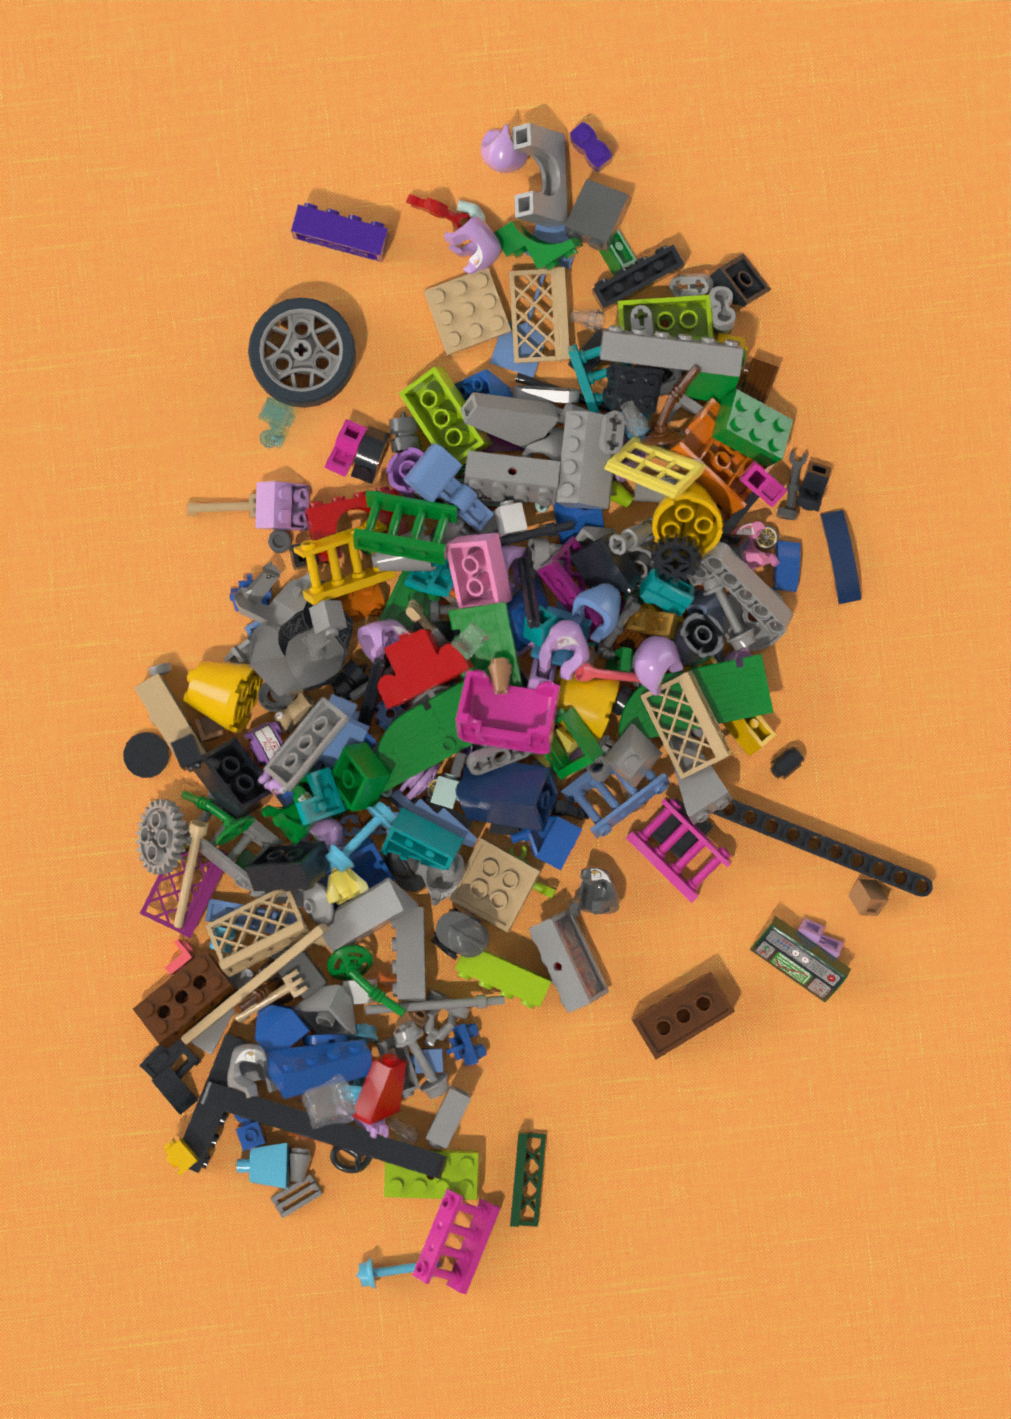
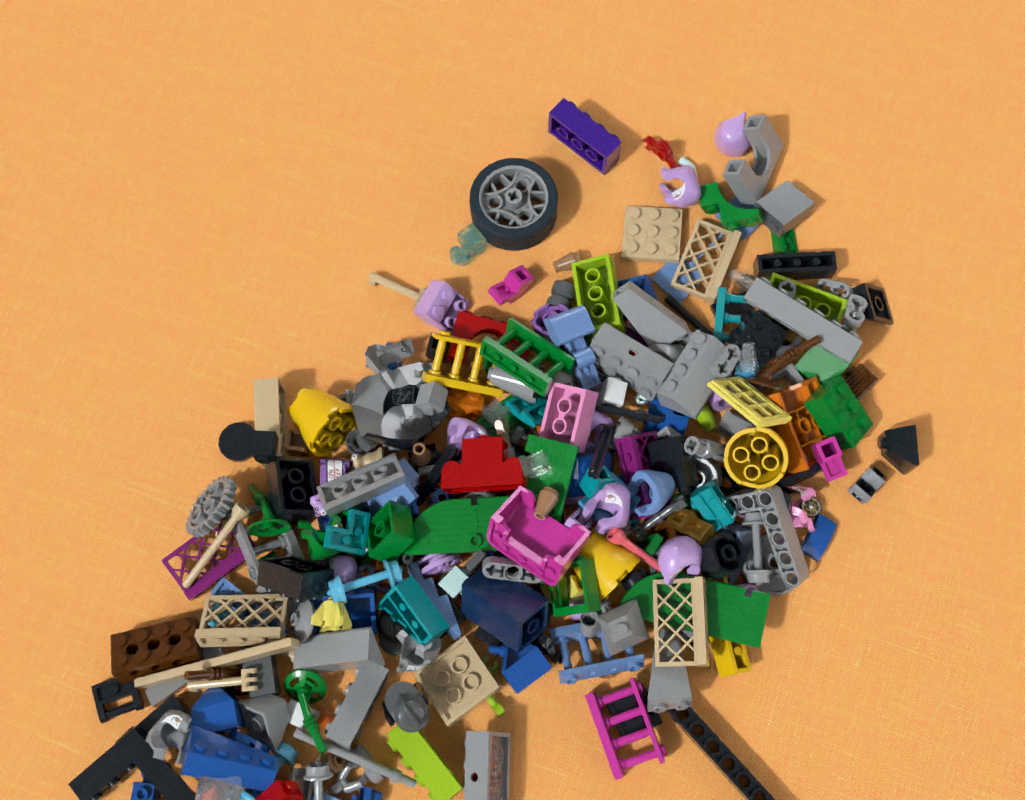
camera: 25 degrees right, 15 degrees down
(160, 669) = (287, 382): light grey tile -> none
(174, 1090) = (106, 722): black slope -> none
(180, 1155) = (75, 780): yellow brick -> none
(181, 960) = (181, 611): coral bracket -> none
(279, 541) = (424, 331): dark grey tile -> none
(351, 686) = (420, 458): none -> medium nougat cone
(370, 454) = (526, 298): black brick -> none
(391, 388) = (564, 262): none -> medium nougat cone
(398, 596) = (495, 412): none -> clear panel
(547, 394) = (690, 319): light grey beam -> none
(595, 151) = (799, 162): dark purple brick -> none
(596, 893) = (537, 731): dark grey piece -> none
(676, 557) = (743, 482): black gear -> none
(786, 763) = (748, 699): black brick -> none
(788, 512) = (837, 495): dark grey piece -> none
(829, 432) = (900, 448): none -> black slope
(841, 556) = (867, 552): dark blue slope -> none

